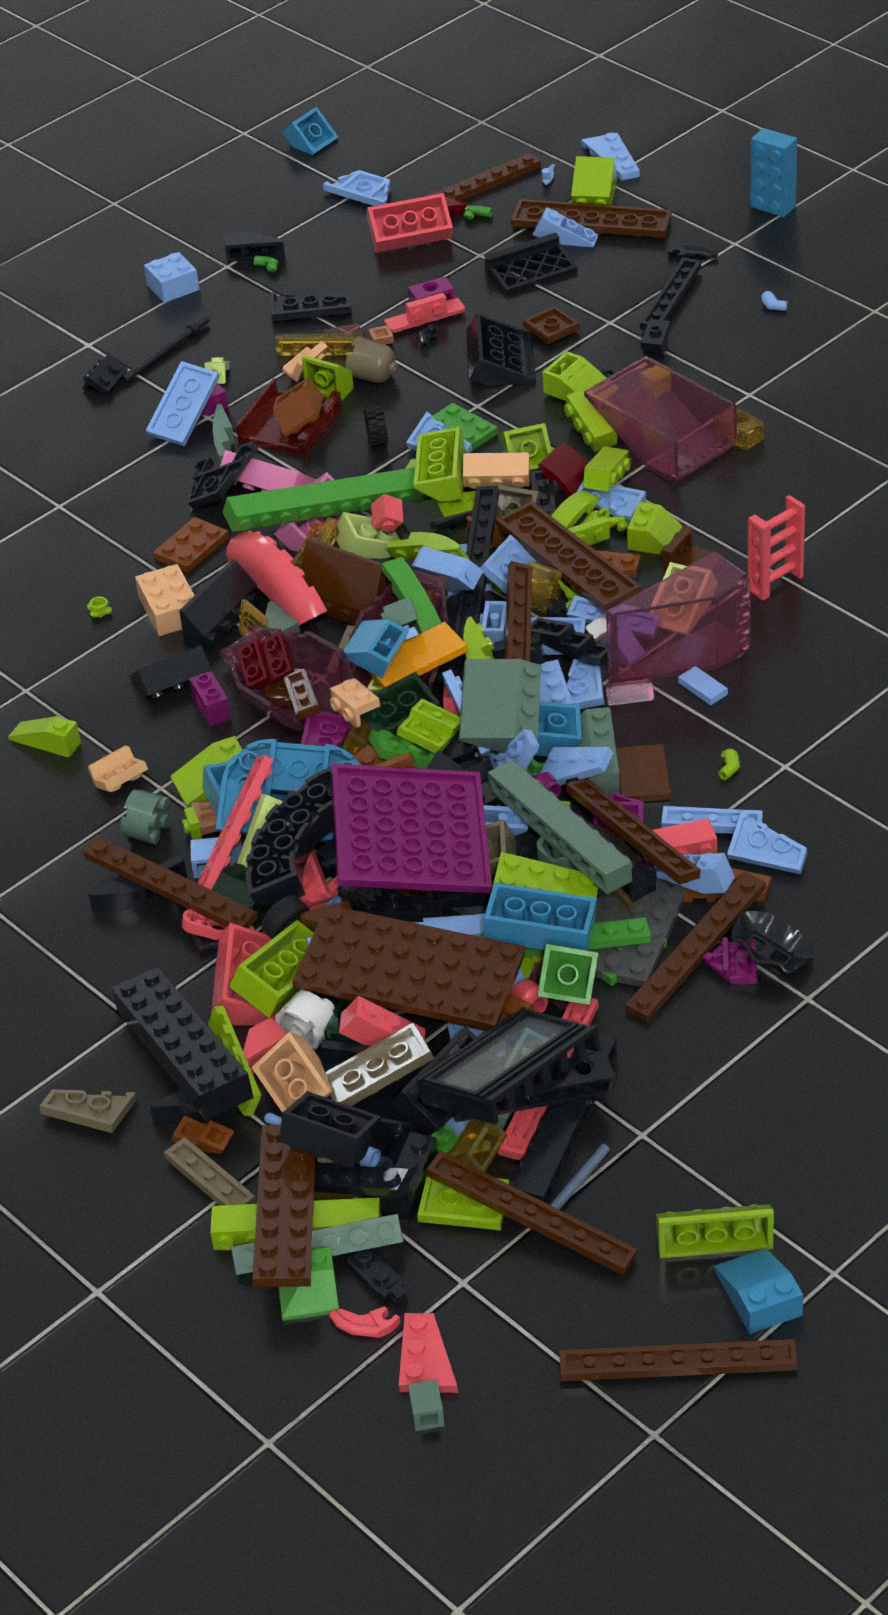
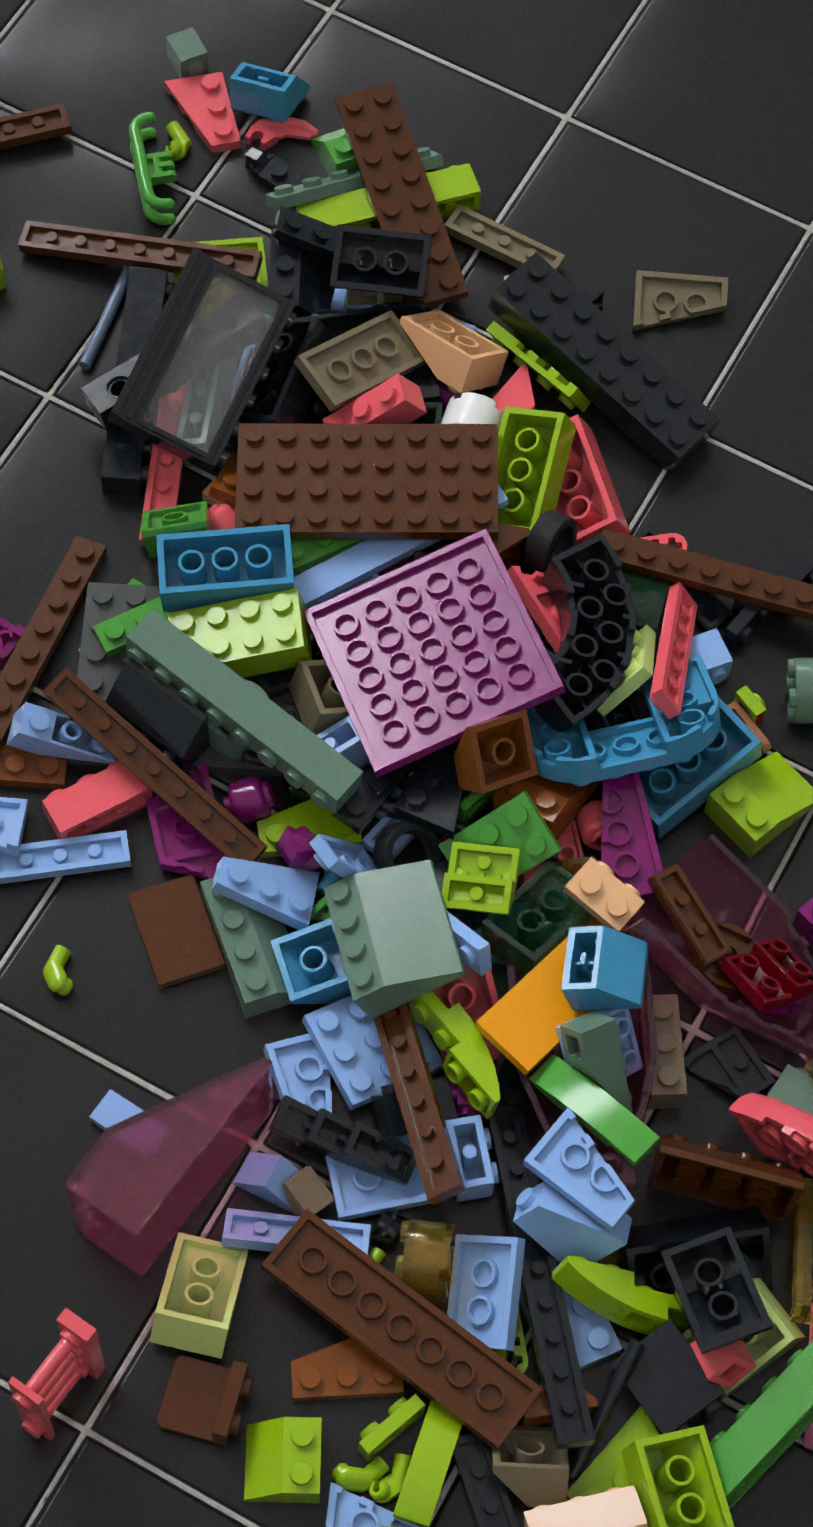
camera: 155 degrees right, 20 degrees up
(361, 1343) = (266, 91): none -> dark azure slope
(380, 524) = (715, 1290): none -> black slope
(436, 571) = (576, 1170): none -> light blue wing
(462, 1324) = (180, 142): none -> lime arm
(496, 1295) = (151, 170): none -> bright green piece

